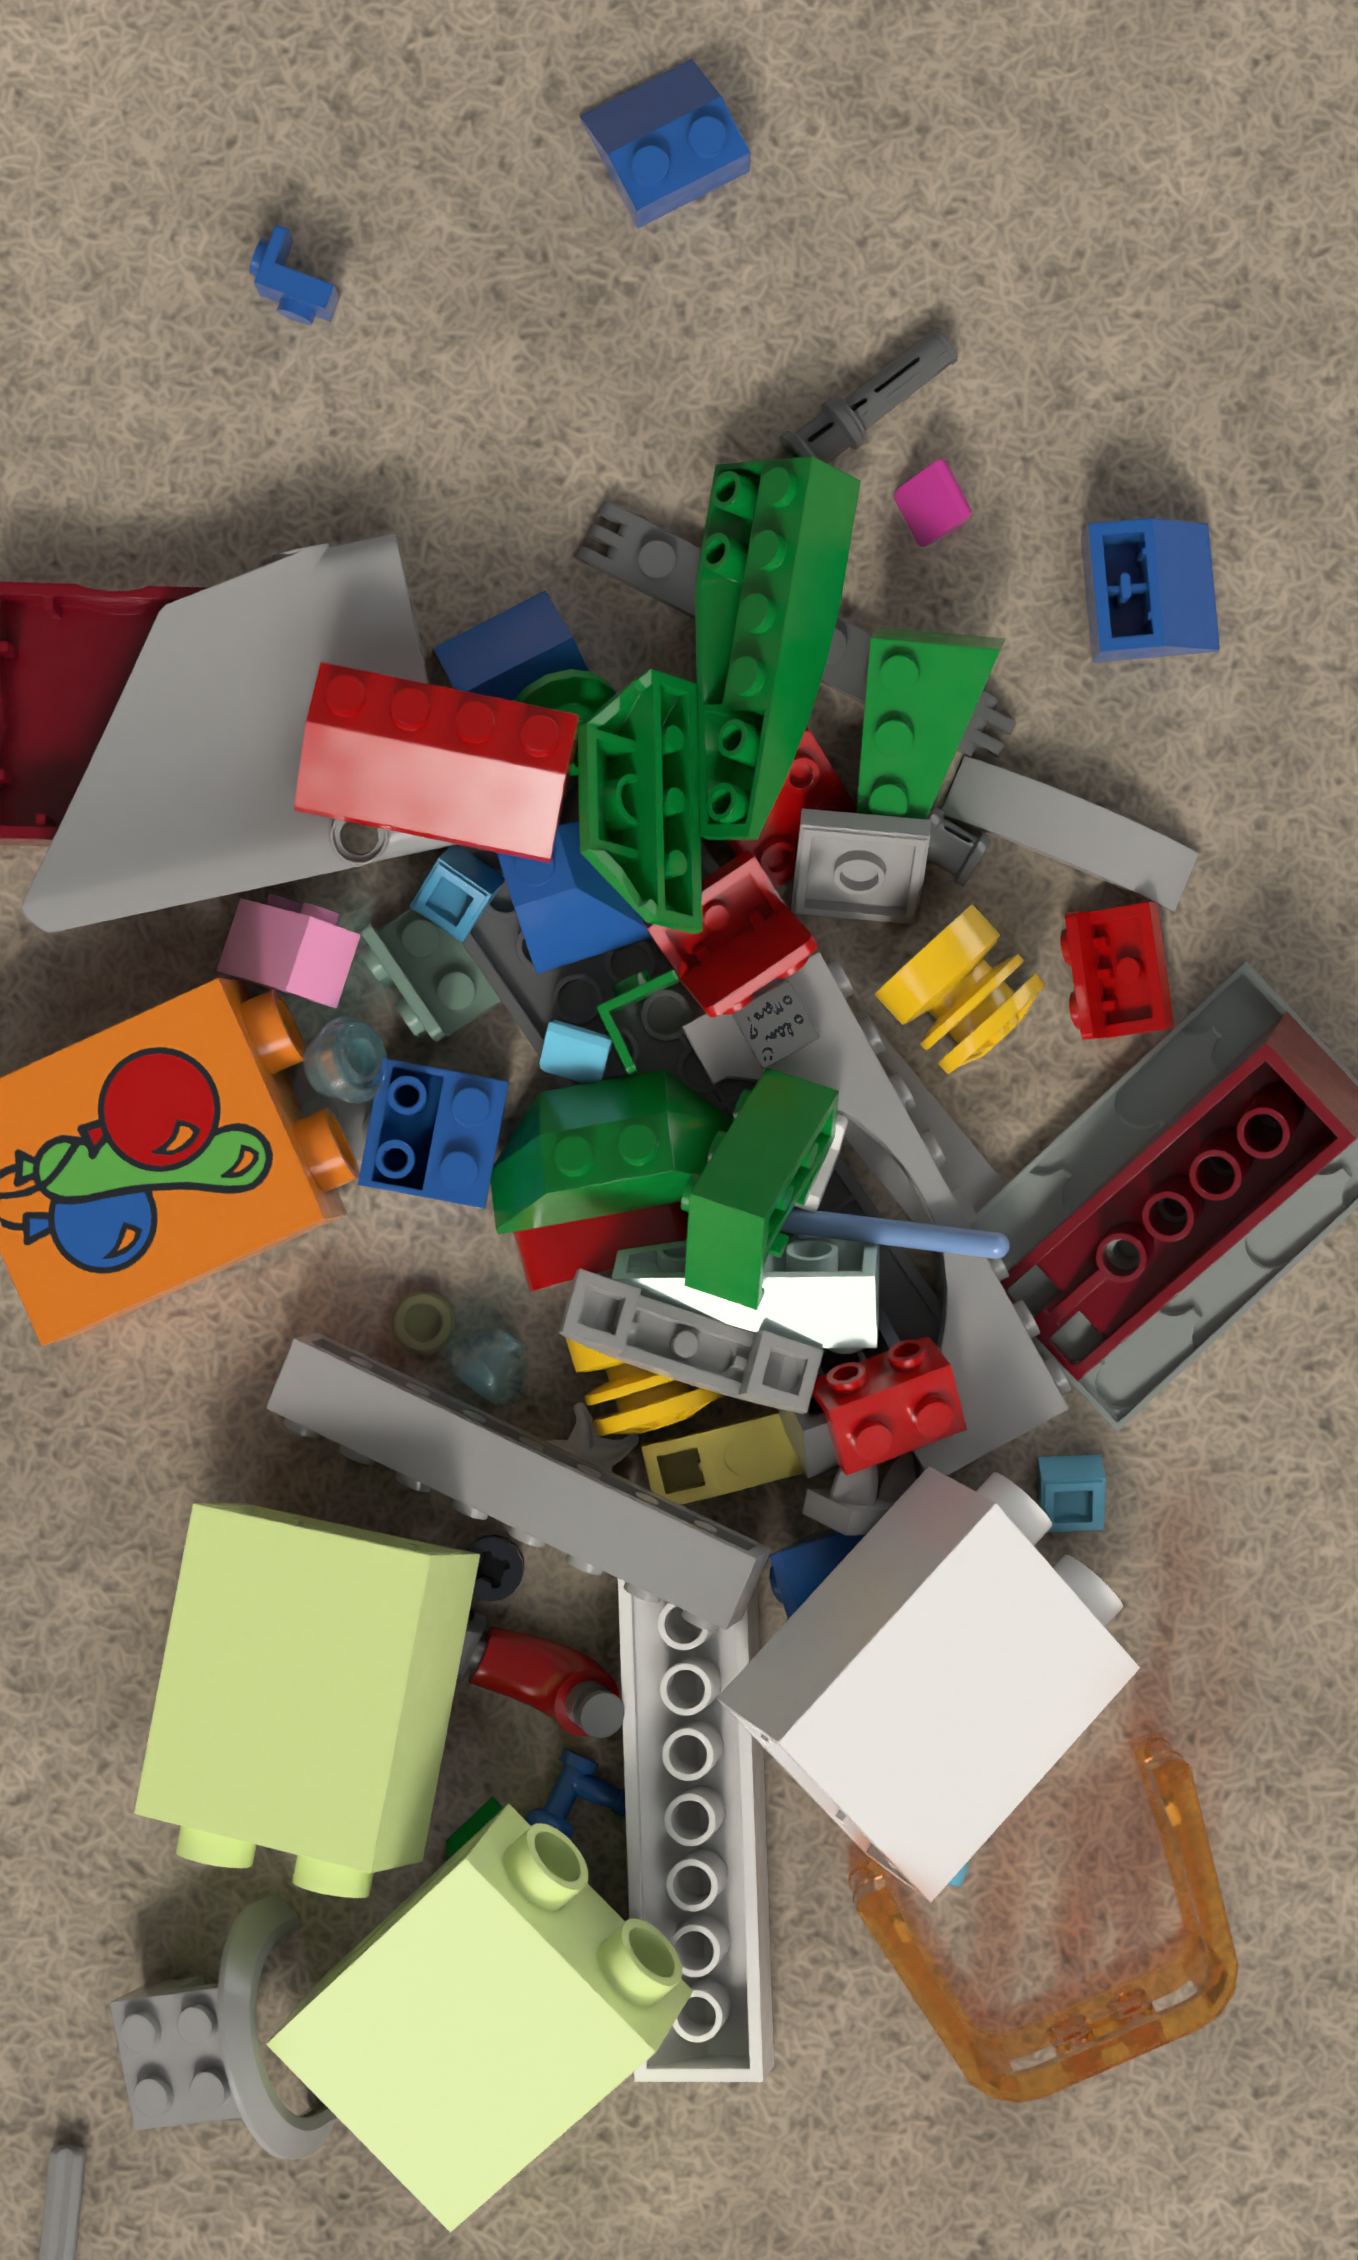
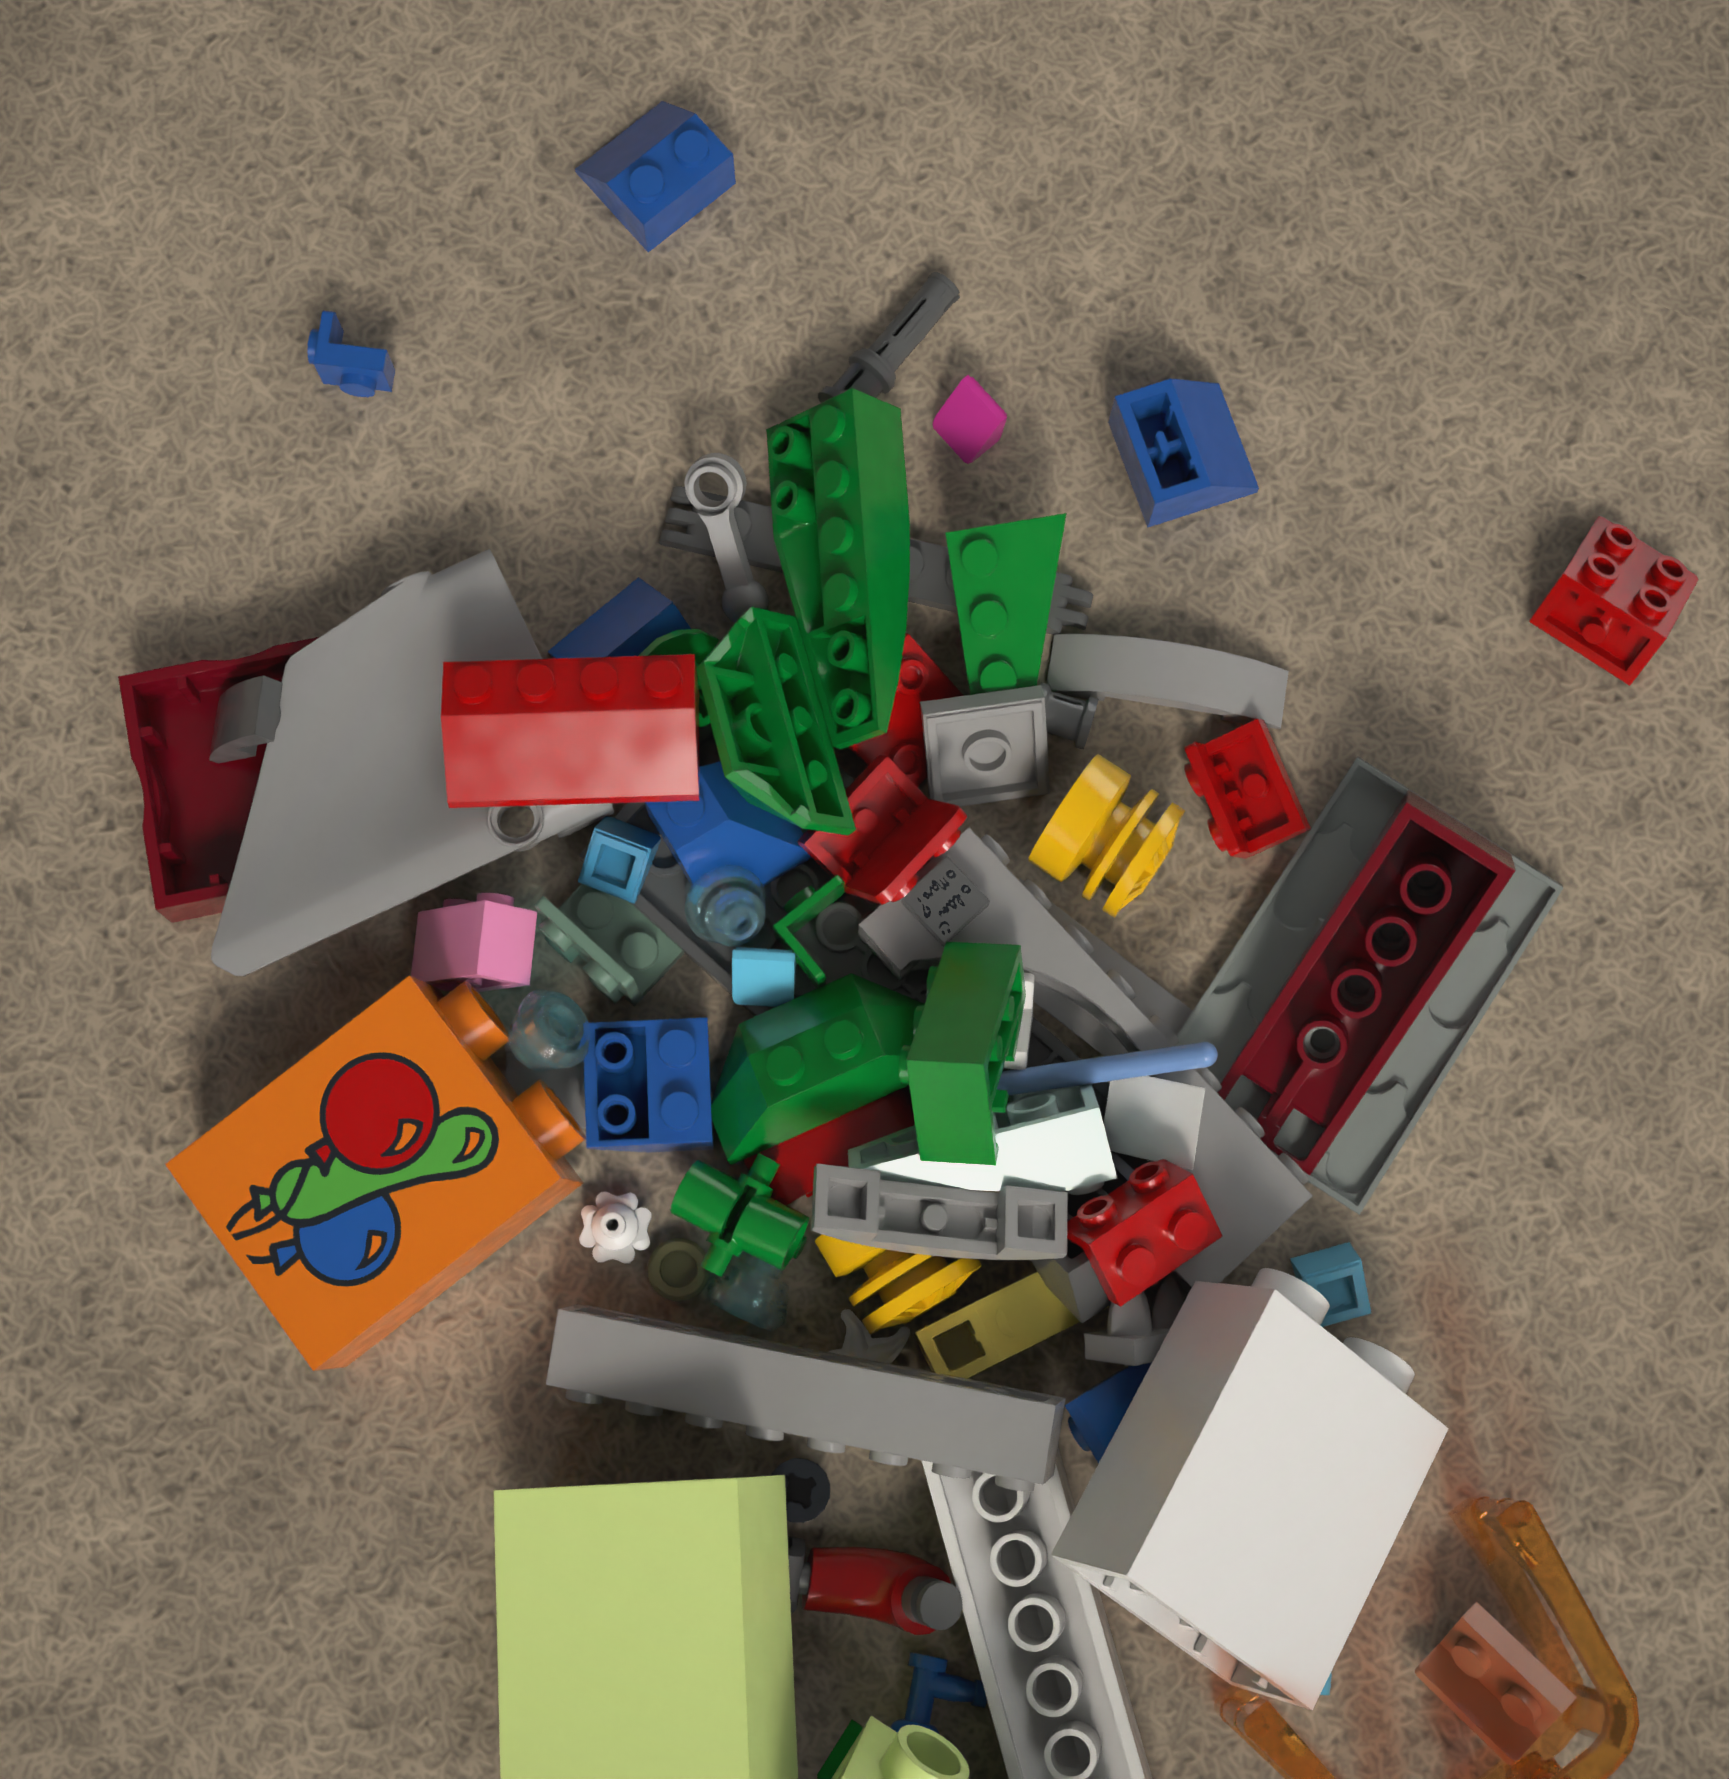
camera: 15 degrees left, 10 degrees down
(105, 658) = (245, 718): none -> dark grey slope
(369, 1266) = (615, 1227): none -> white plant
(495, 1288) = (740, 1215): none -> green pin
(554, 972) = (726, 906): none -> clear light blue cone
(649, 640) = (722, 527): none -> light grey piece
(930, 1295) = (1154, 1119): none -> white sticker
(1121, 1916) = (1494, 1684): none -> nougat bracket

